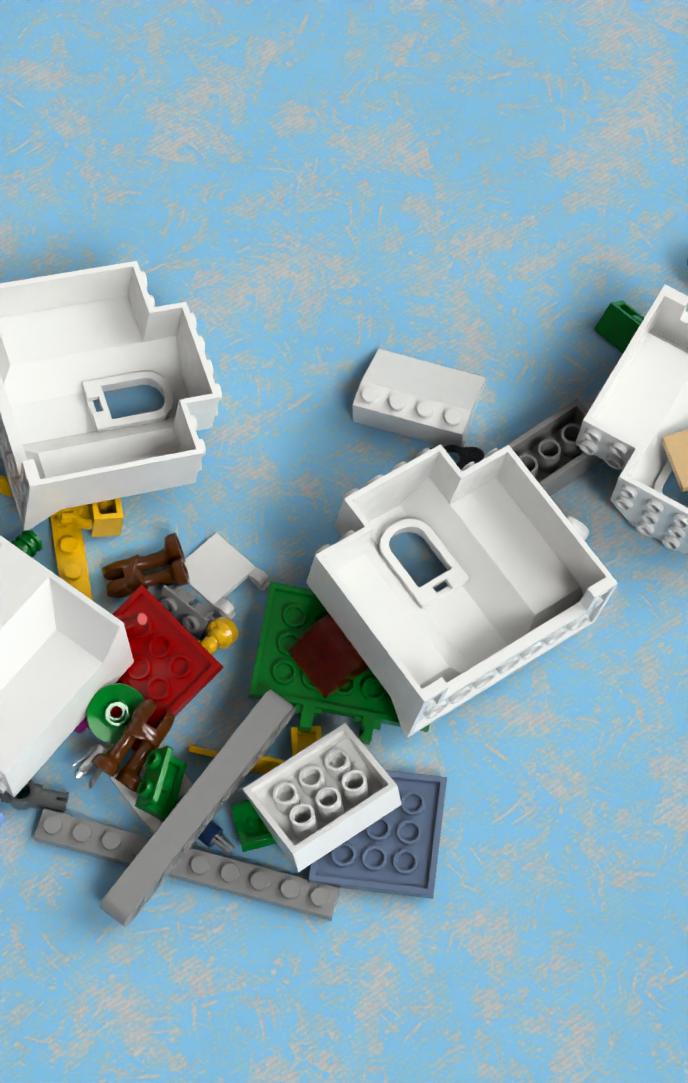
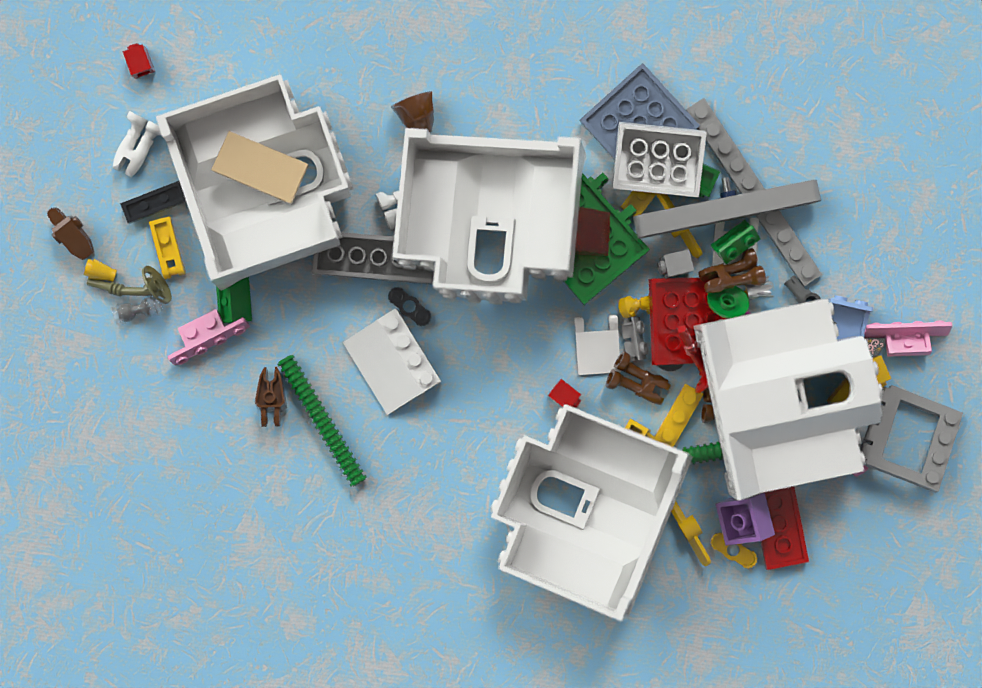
camera: 145 degrees left, 25 degrees up
(207, 708) = (675, 264): none -> light grey brick
(212, 498) = (565, 394): none -> red brick
(437, 292) = (322, 421): none -> green piece
(507, 272) = (270, 397): none -> reddish brown hinge
(626, 639) = (416, 111): none -> reddish brown helmet
(628, 278) = (205, 333): none -> bright pink bracket

